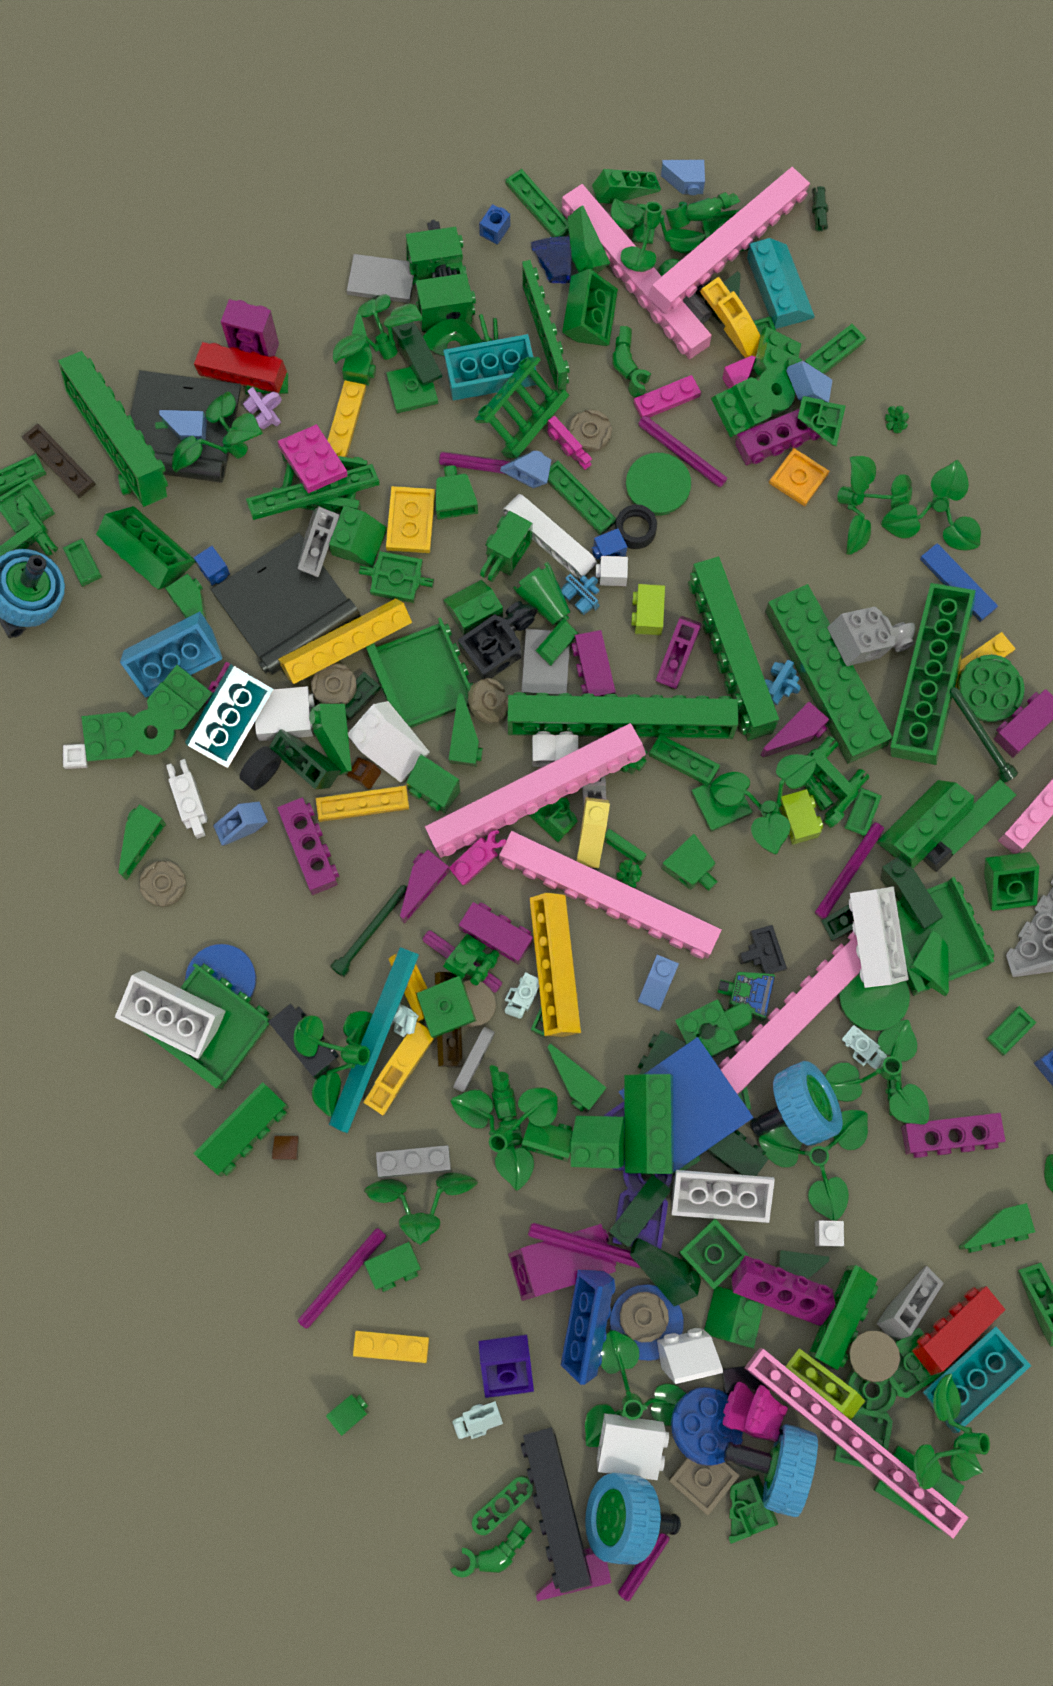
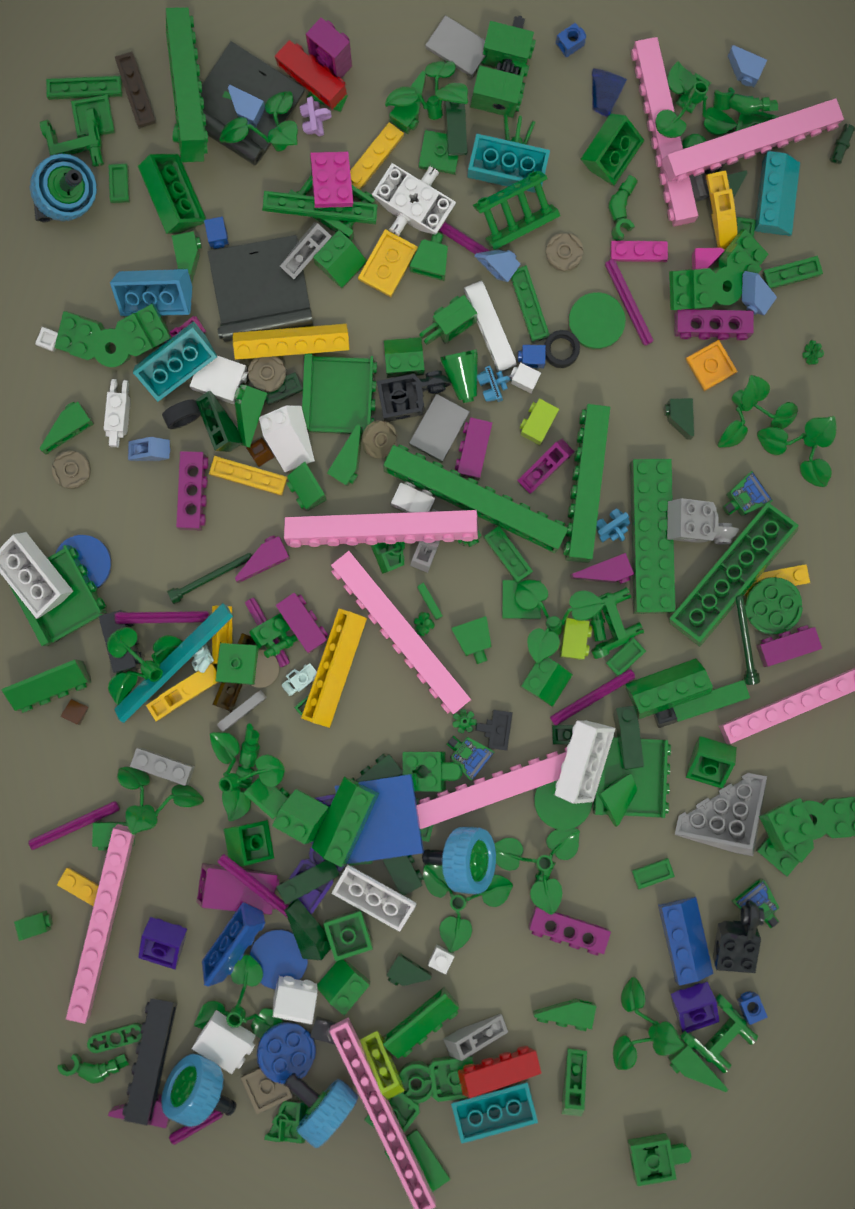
camera: 20 degrees right, 10 degrees up
(337, 994) = (160, 617): none -> magenta axle
(396, 576) = (355, 305): green plate -> none
(408, 445) = (400, 188): none -> white slope
(426, 1376) = (100, 924): none -> bright pink brick
(444, 332) = (485, 116): green piece -> none
(476, 858) = (313, 559): dark pink plate -> none
(478, 1420) = (125, 971): light aqua piece -> none
(538, 204) = (615, 37): green tile -> none
(546, 330) = (568, 151): green plate -> none
(551, 1202) = (249, 843): none -> green slope
(556, 642) = (454, 415): green tile -> none
(568, 442) = (541, 256): dark pink plate -> none
(578, 1083) = (310, 765): green slope -> none
(585, 244) = (633, 95): green slope -> none
(593, 831) = (410, 579): light yellow slope -> none
(624, 185) = (692, 52): green slope -> none
(644, 1317) = (277, 955): dark tan tile -> none
(658, 982) = (405, 716): medium blue slope -> none
(721, 963) = (459, 721): none -> green plant
(754, 1414) = (322, 1060): dark pink piece -> none
(783, 1290) = (384, 985): magenta brick -> none
(791, 874) = (546, 681): none -> green slope
(794, 539) = (681, 416): none -> dark green slope
(822, 417) = (751, 327): green slope -> none
(864, 1046) = (536, 835): light aqua piece -> none
(874, 1356) = (428, 1062): dark tan tile -> none
(904, 589) = (747, 496): none -> torso
(953, 575) = (793, 507): blue tile -> none
(963, 1459) = (461, 1160): green plant -> none

